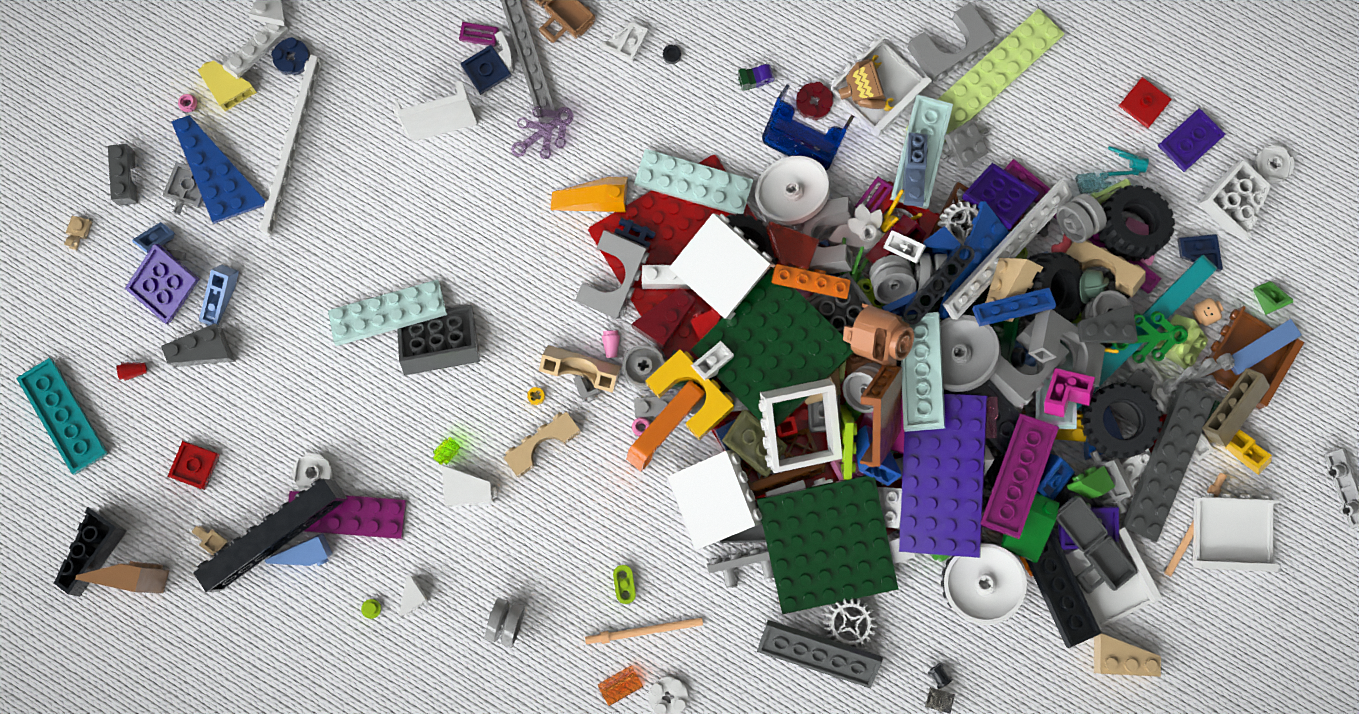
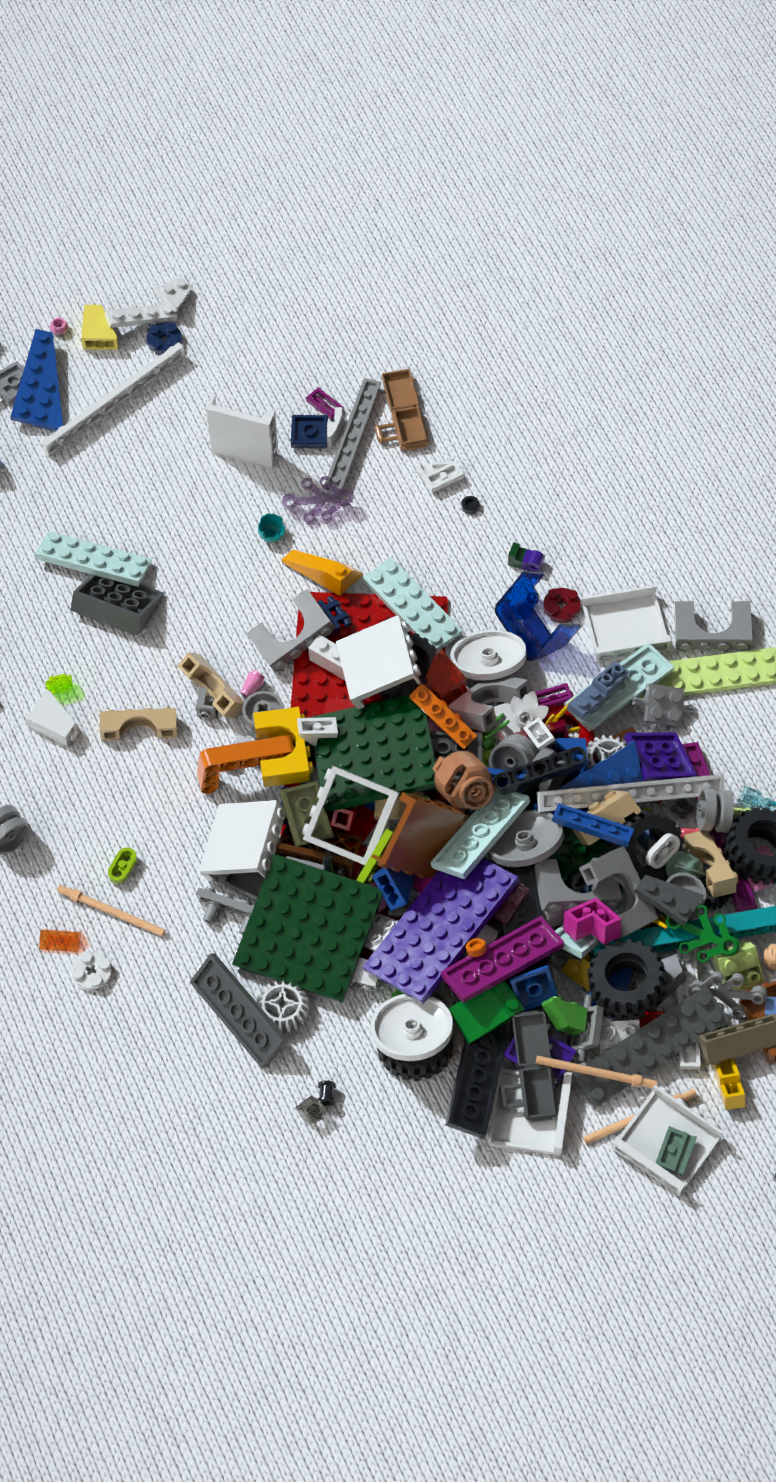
camera: 35 degrees right, 20 degrees down
(521, 185) = (271, 528): none -> teal hair
(537, 401) = (159, 692): yellow bush -> none
(665, 318) = (309, 687): dark red wedge -> none
(811, 479) = (329, 866): none -> black arm
(866, 86) = (611, 612): medium nougat torso -> none
(993, 481) = (476, 947): none -> orange tile
(1074, 285) = (662, 850): none -> white plate
(1121, 658) = (492, 1177): tan wedge -> none
(1178, 501) = (635, 1080): none -> light nougat bar
(1249, 539) = (675, 1150): none -> sand green plate

